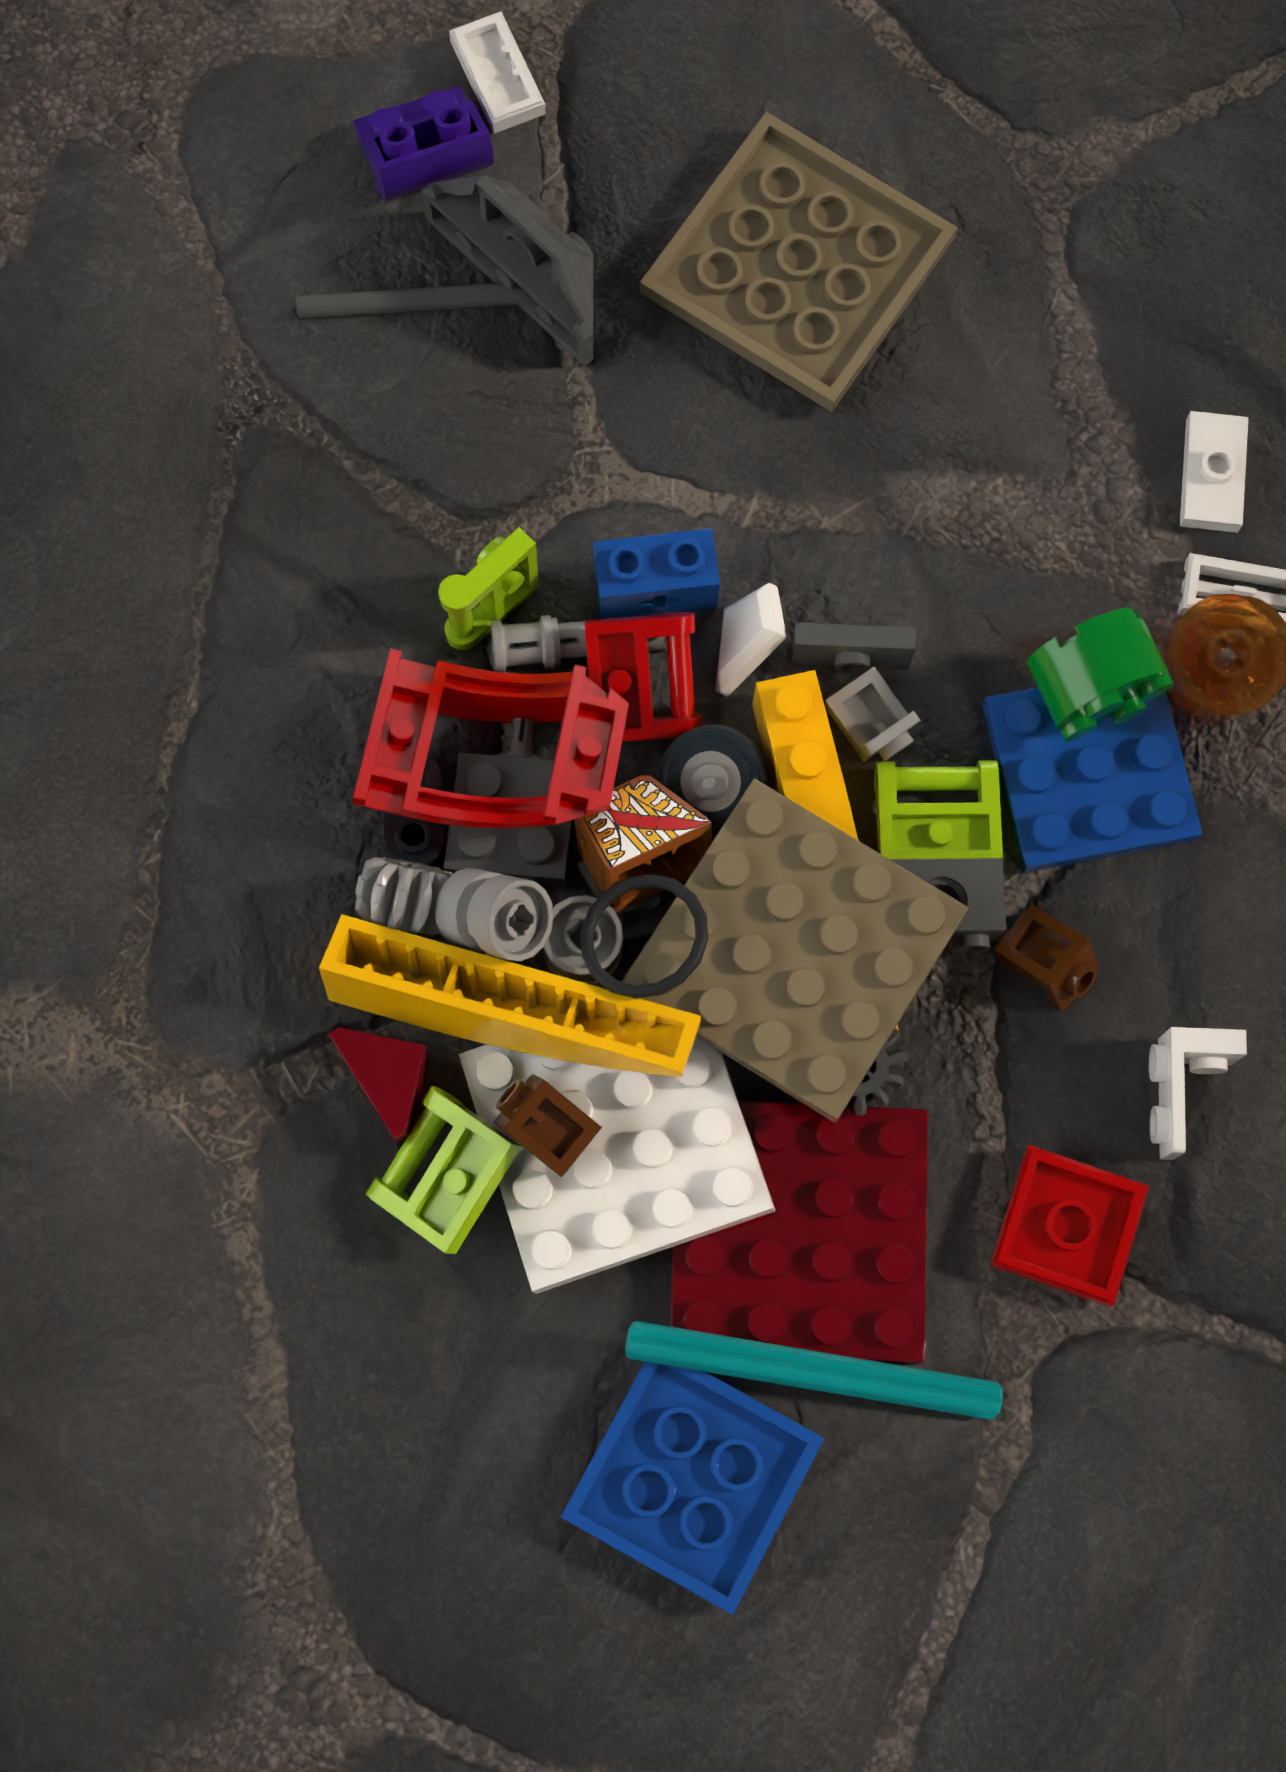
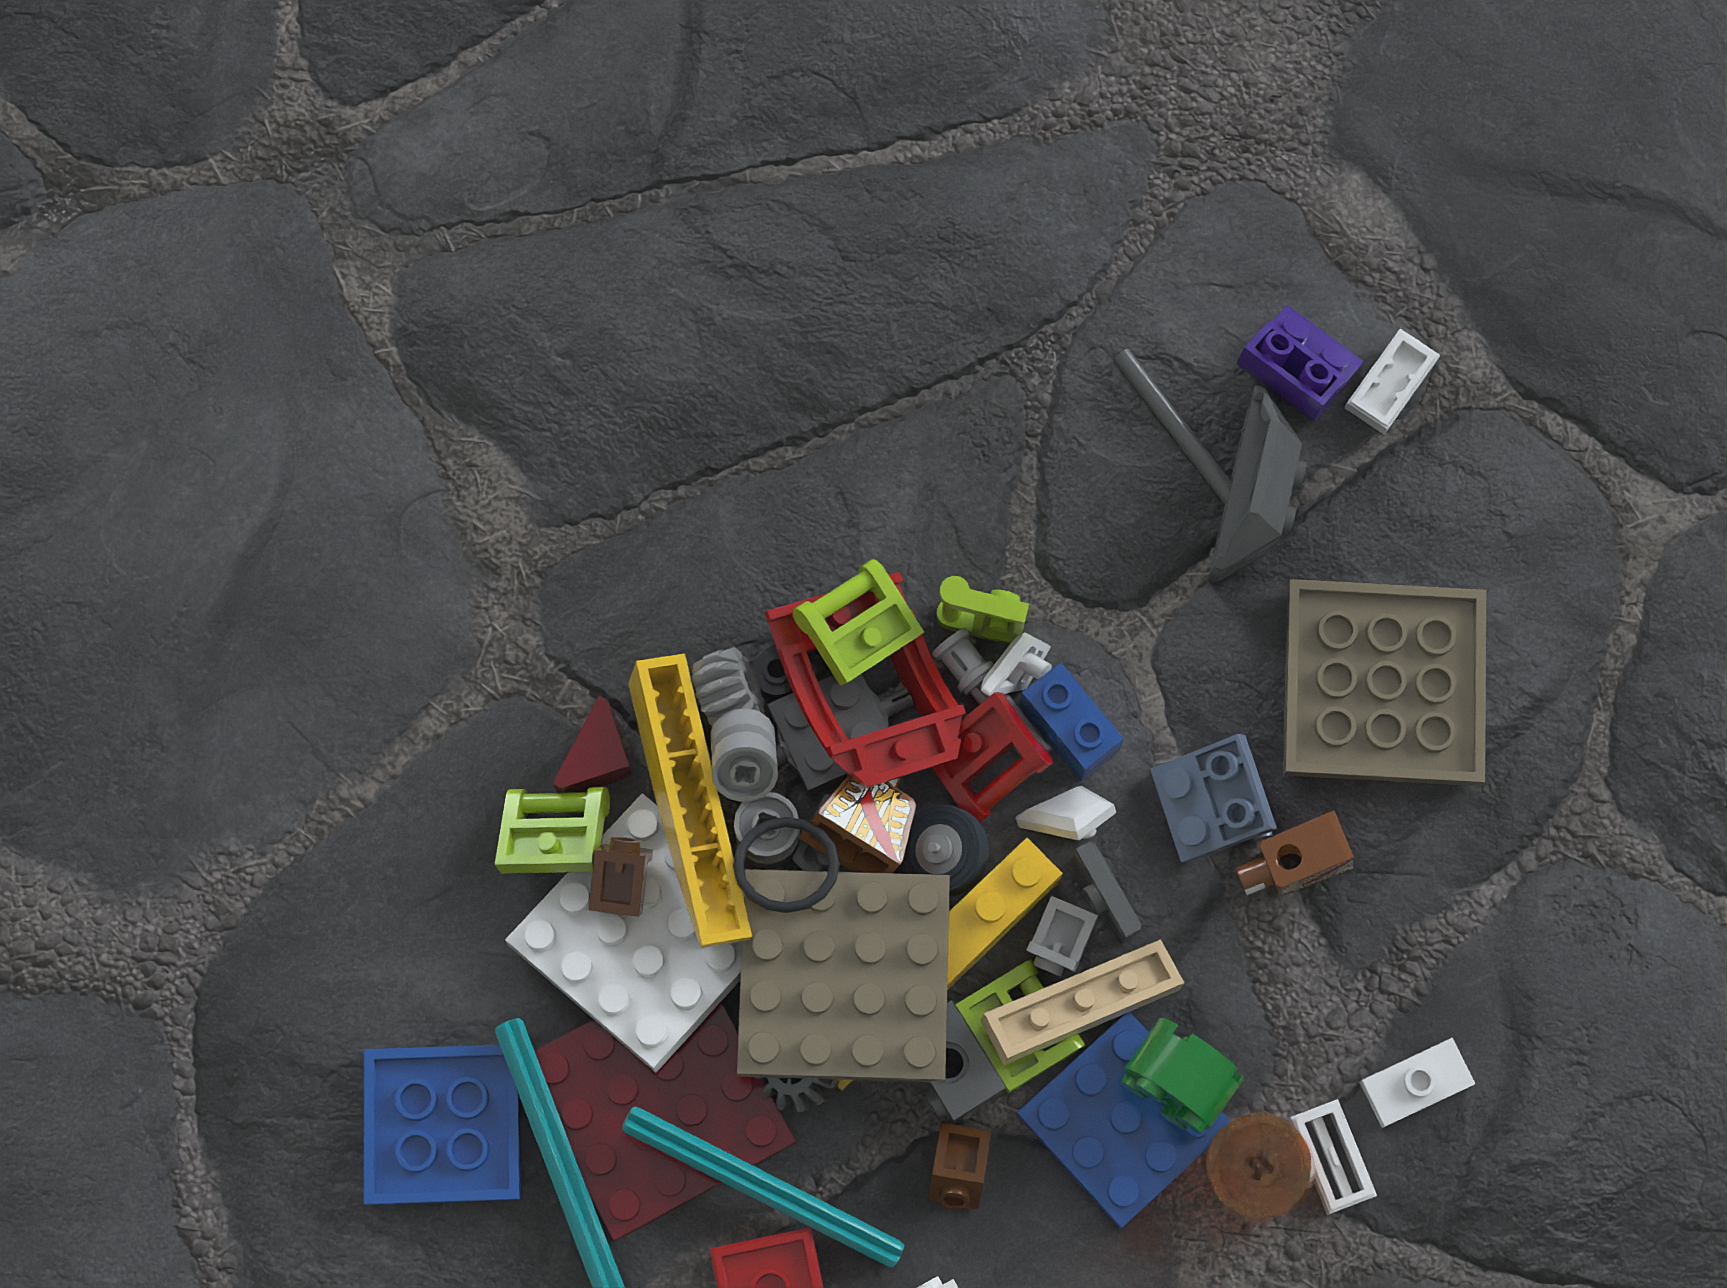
camera: 60 degrees right, 0 degrees up
(443, 711) = (867, 636): none -> lime plate
(562, 590) = (1017, 666): none -> white piece
(820, 486) = (1213, 799): none -> sand blue plate
(938, 421) = (1318, 845): none -> dark orange torso
(955, 735) = (1081, 1002): none -> tan plate
(957, 1171) = (763, 1186): none -> teal axle

